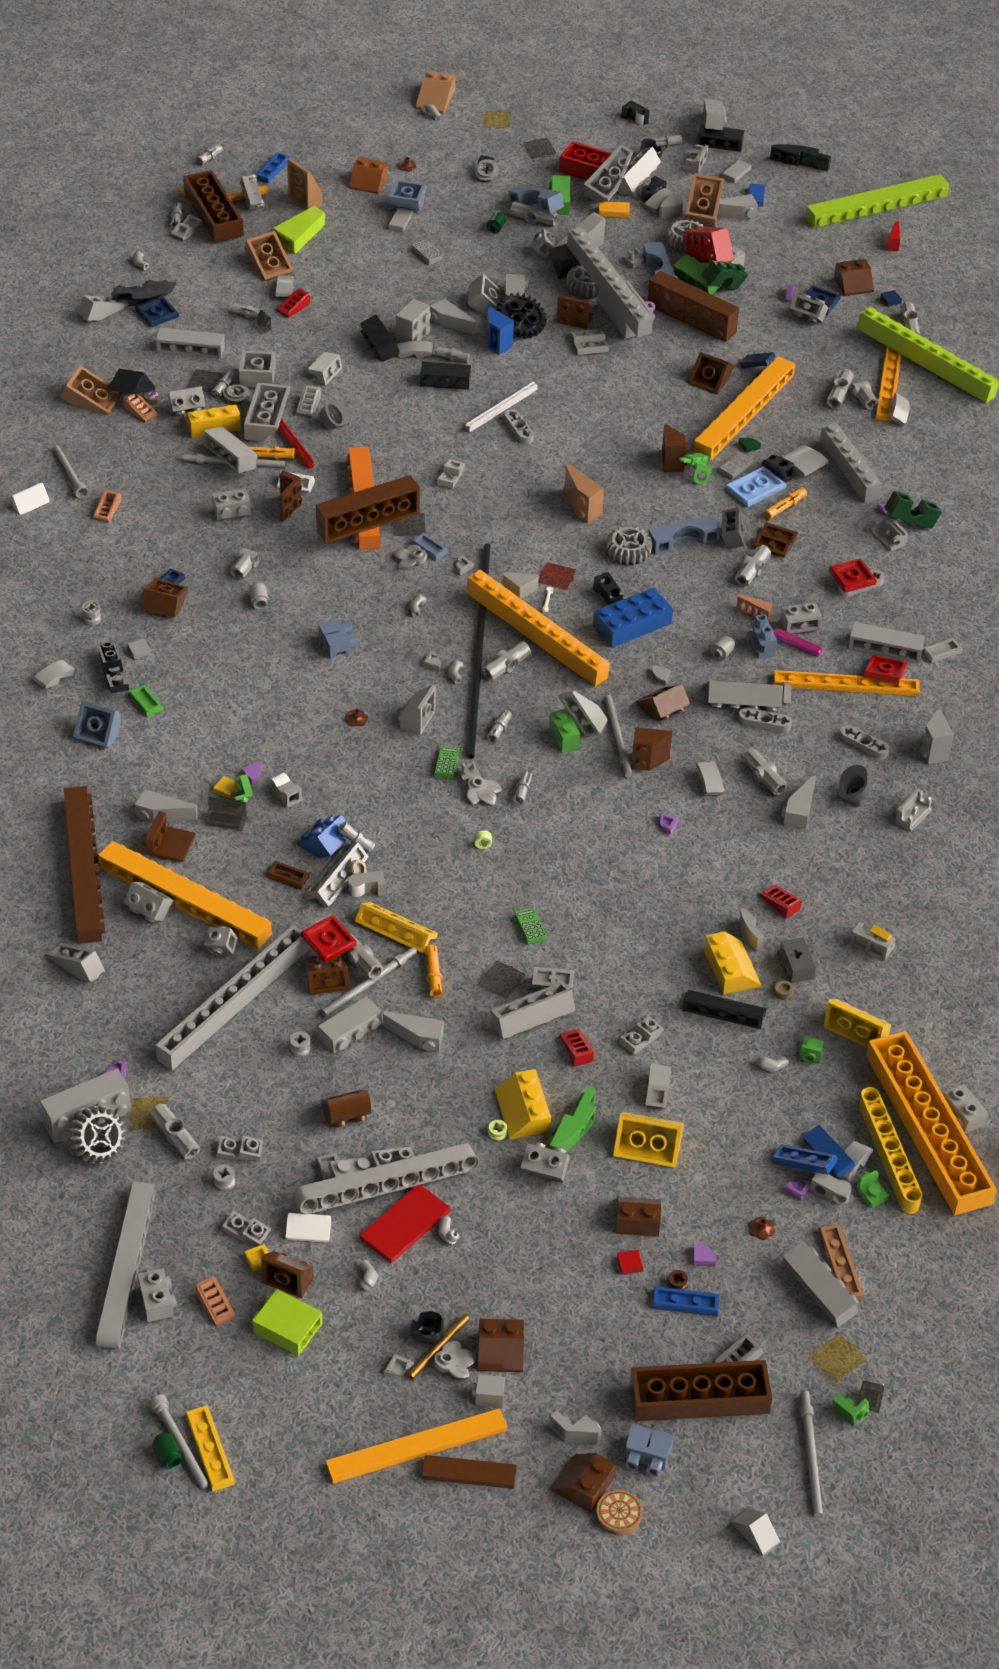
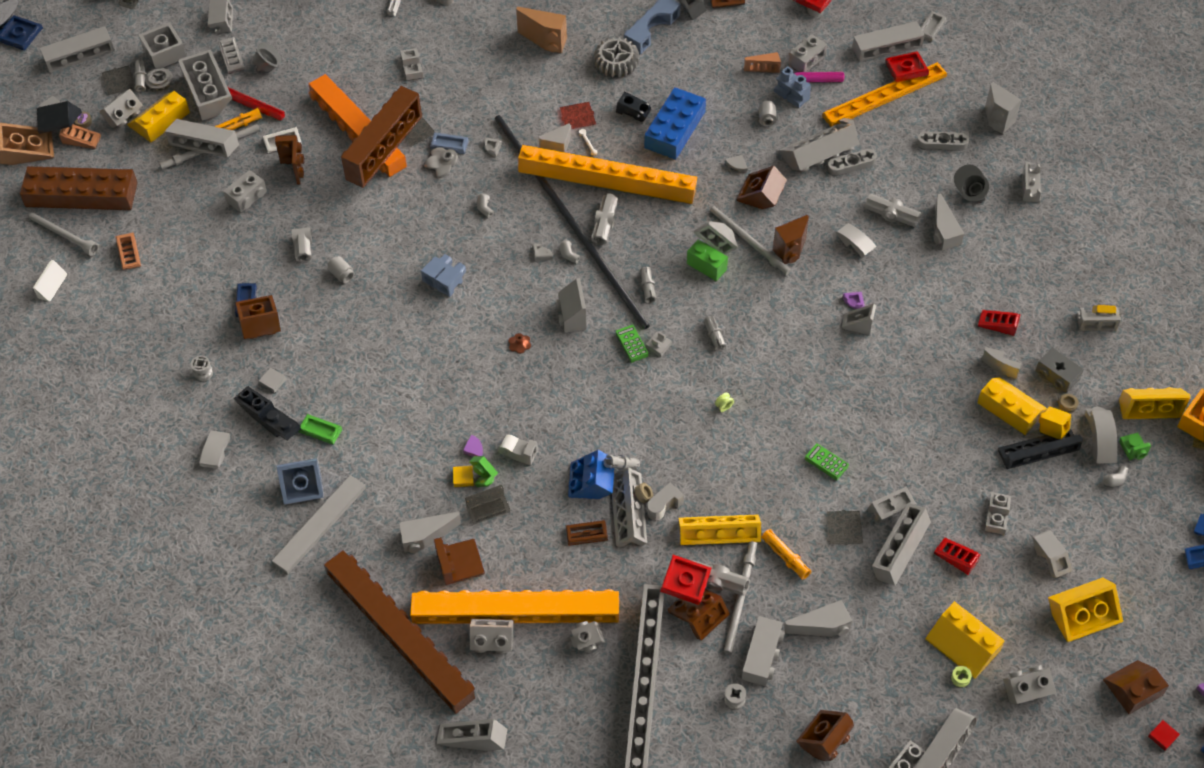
camera: 30 degrees left, 10 degrees up
(88, 764) = (318, 524): none -> light grey tile
(106, 443) = (79, 188): none -> reddish brown brick
(485, 791) = (684, 356): light grey plate -> none
(576, 1125) = (1021, 631): bright green slope -> none
(657, 839) = (860, 319): none -> light grey slope
(753, 566) = (729, 25): light grey piece -> none
(753, 994) = (1055, 422): none -> yellow brick
(785, 1024) = (1103, 434): none -> light grey arch

